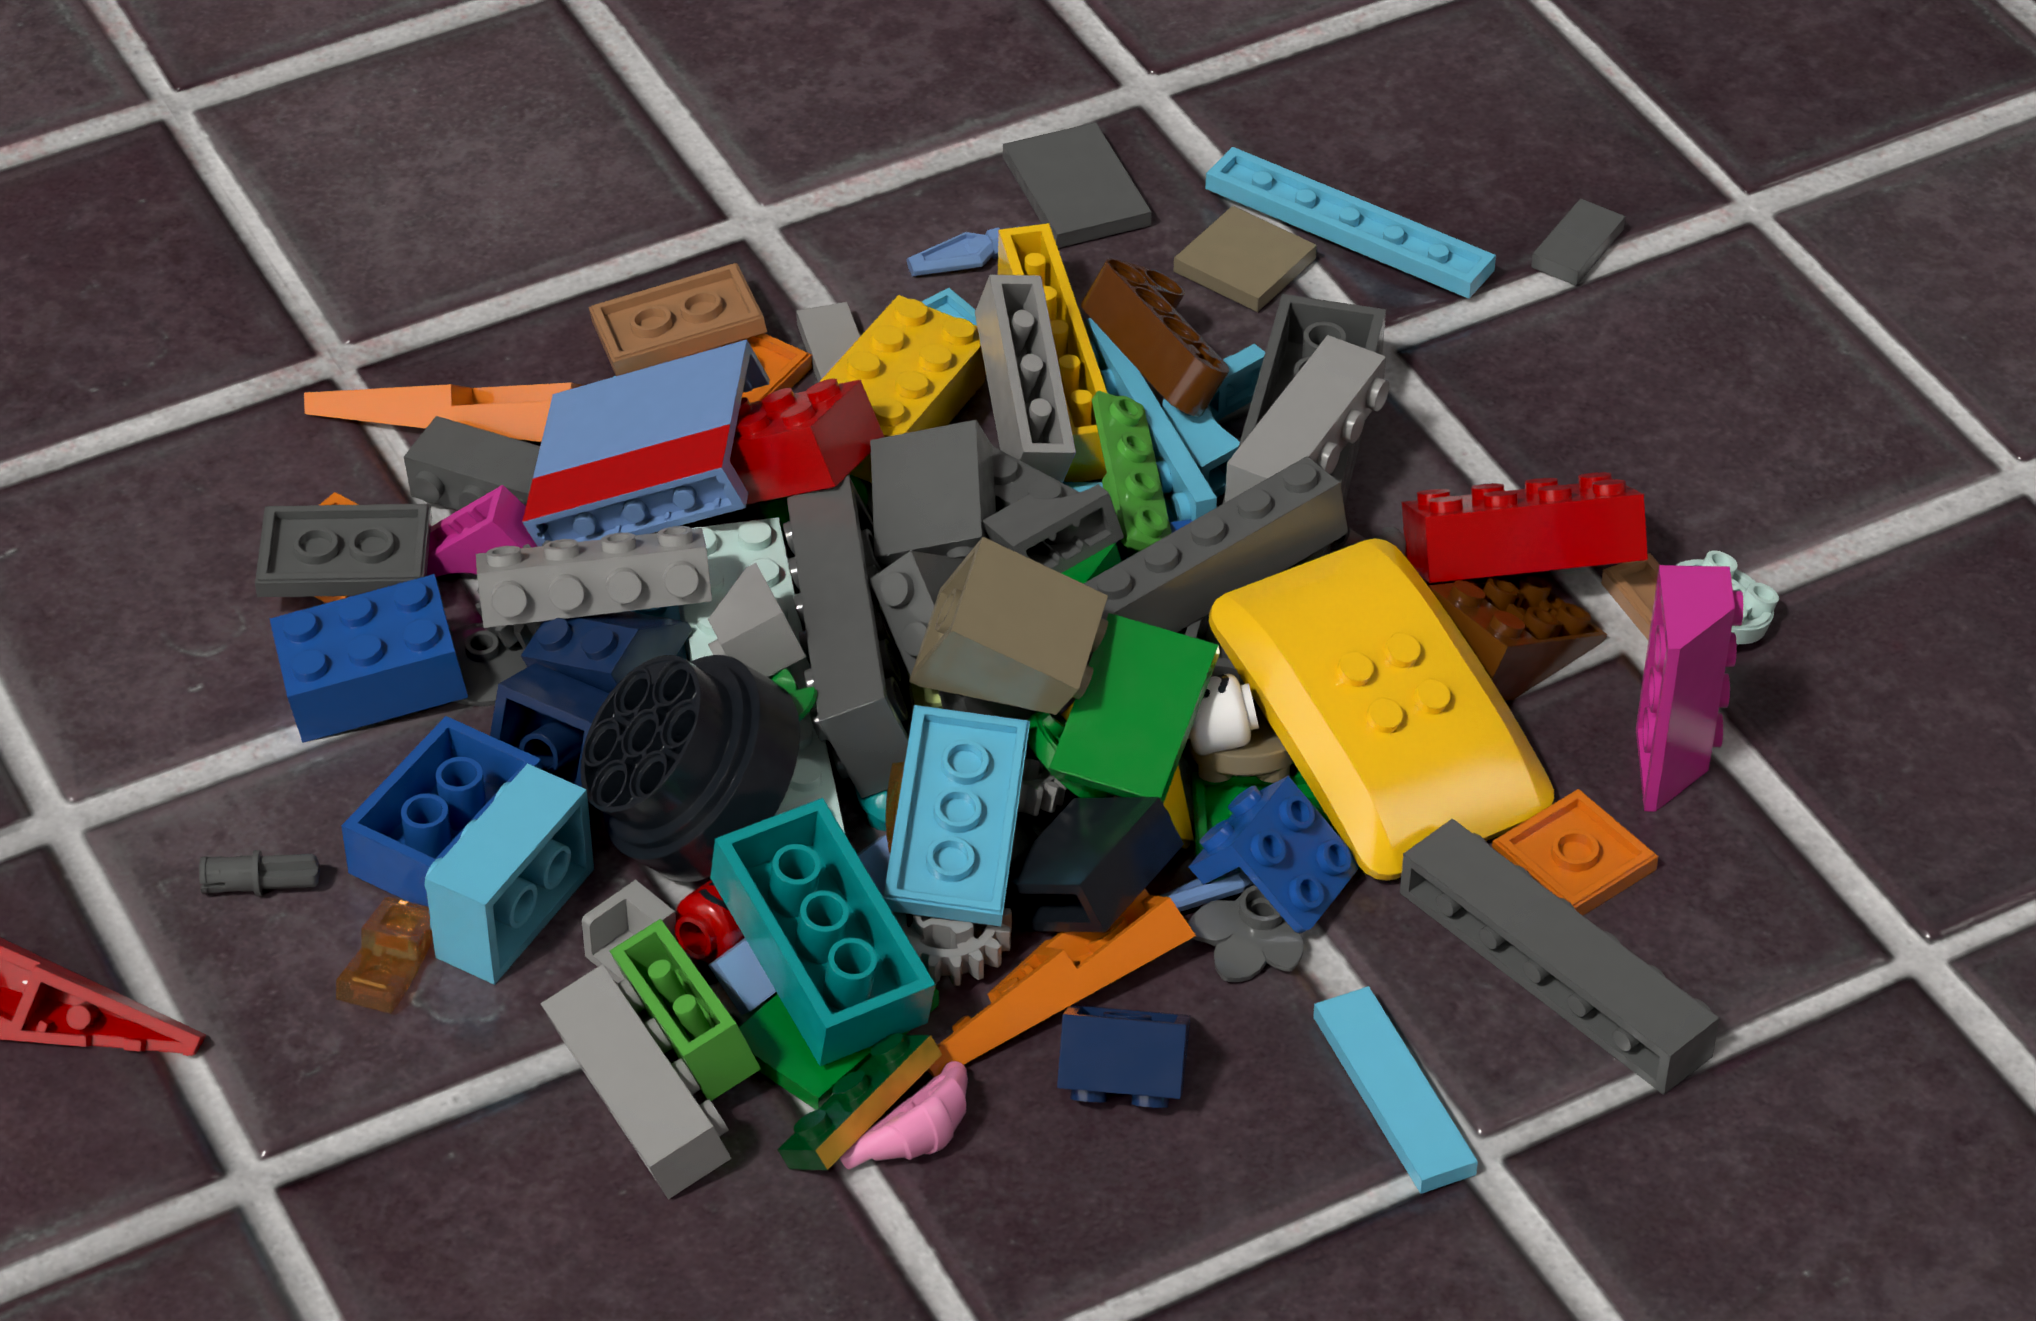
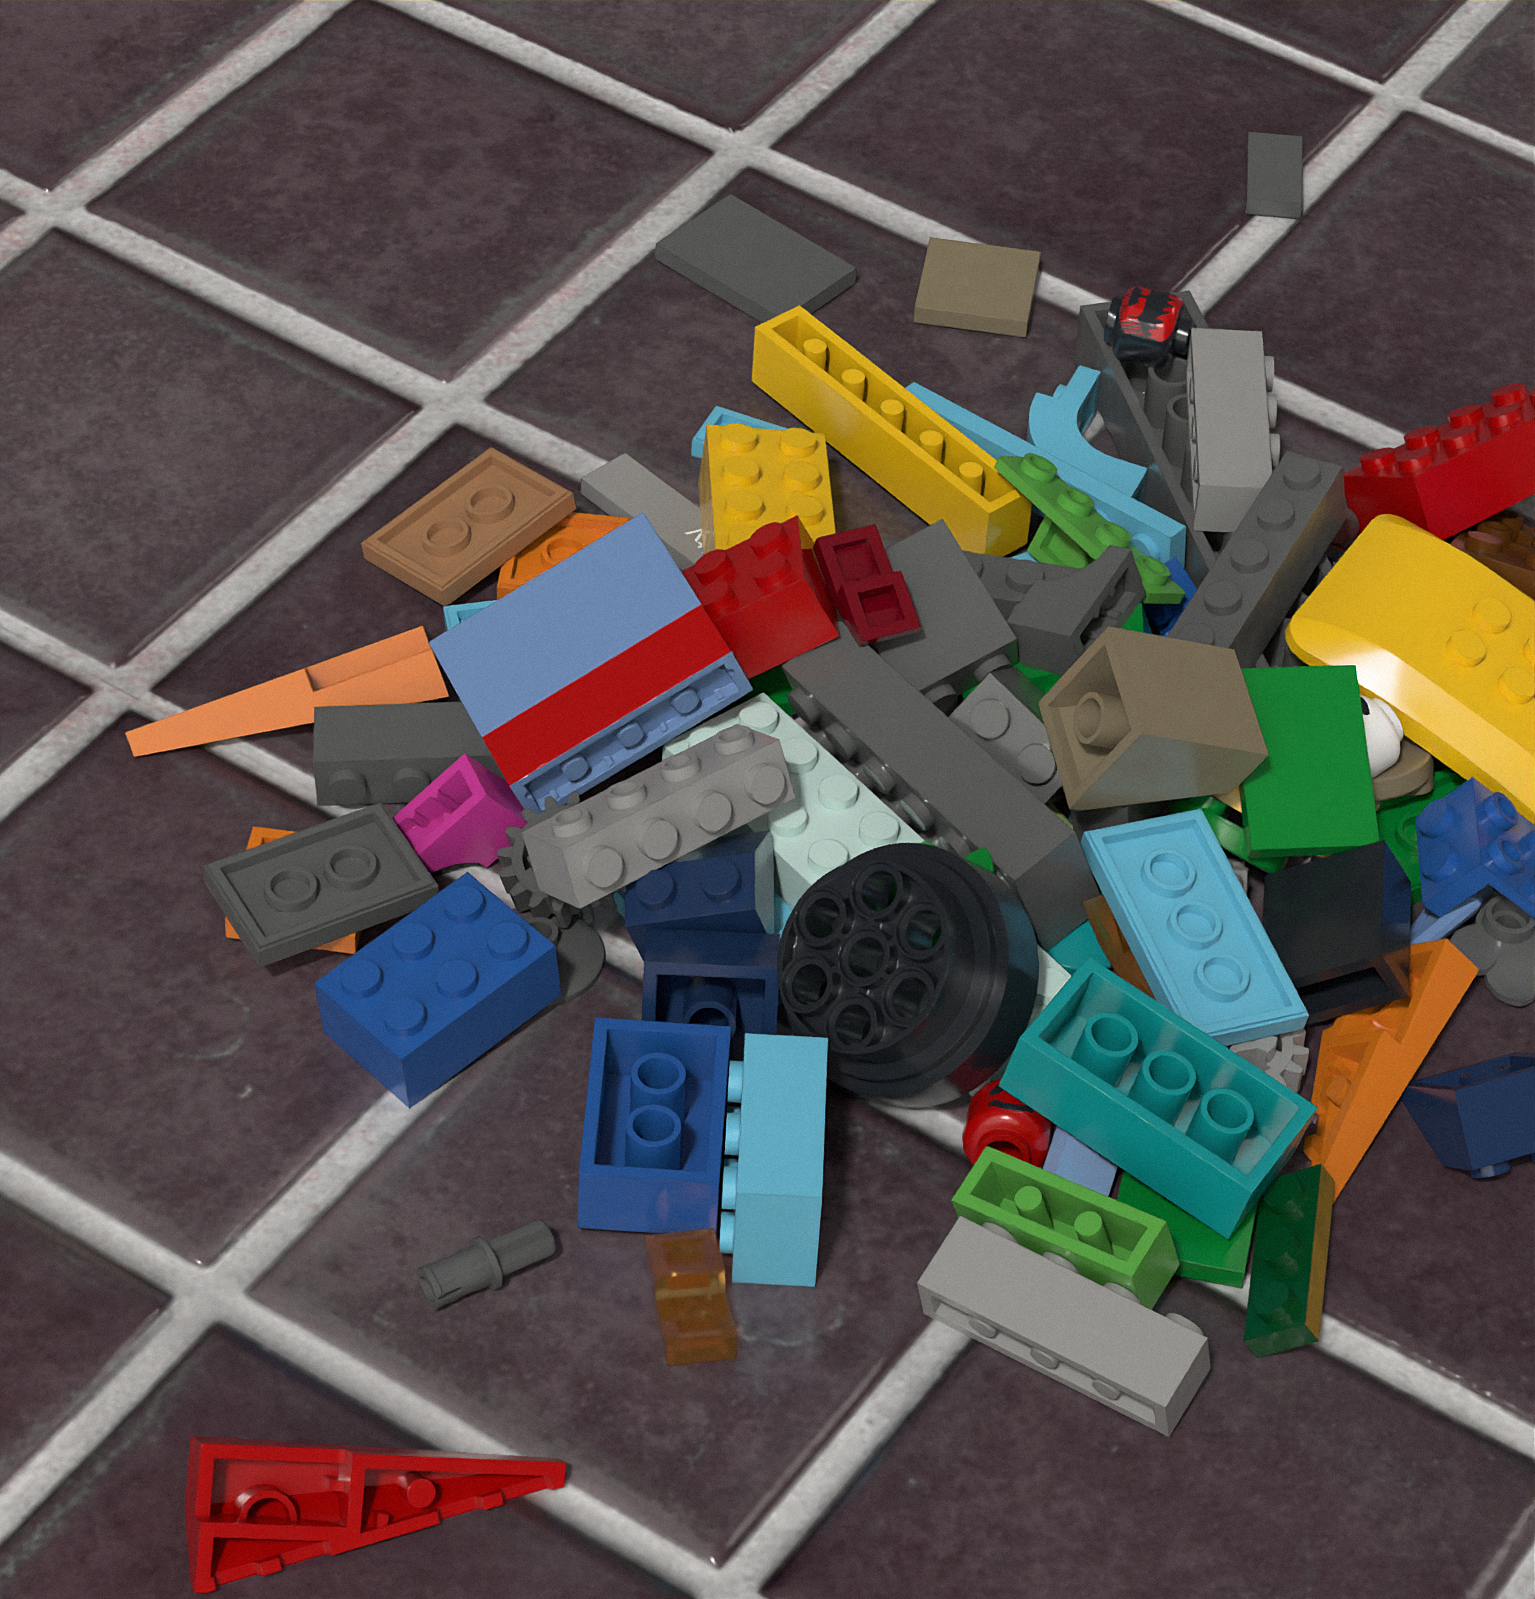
camera: 30 degrees left, 0 degrees up
(620, 919) = (927, 1176): light grey panel -> none
(754, 626) = (868, 803): light grey slope -> none
(879, 453) = (864, 587): none -> dark red slope
(917, 1125) = (1363, 1252): bright pink piece -> none
(955, 254) = (698, 365): medium blue piece -> none
(1024, 374) = (904, 458): light grey brick -> none
(1141, 318) = (1000, 385): reddish brown beam -> none
(1304, 320) = (1147, 327): none -> black head
(1351, 222) = (1053, 219): medium azure plate -> none

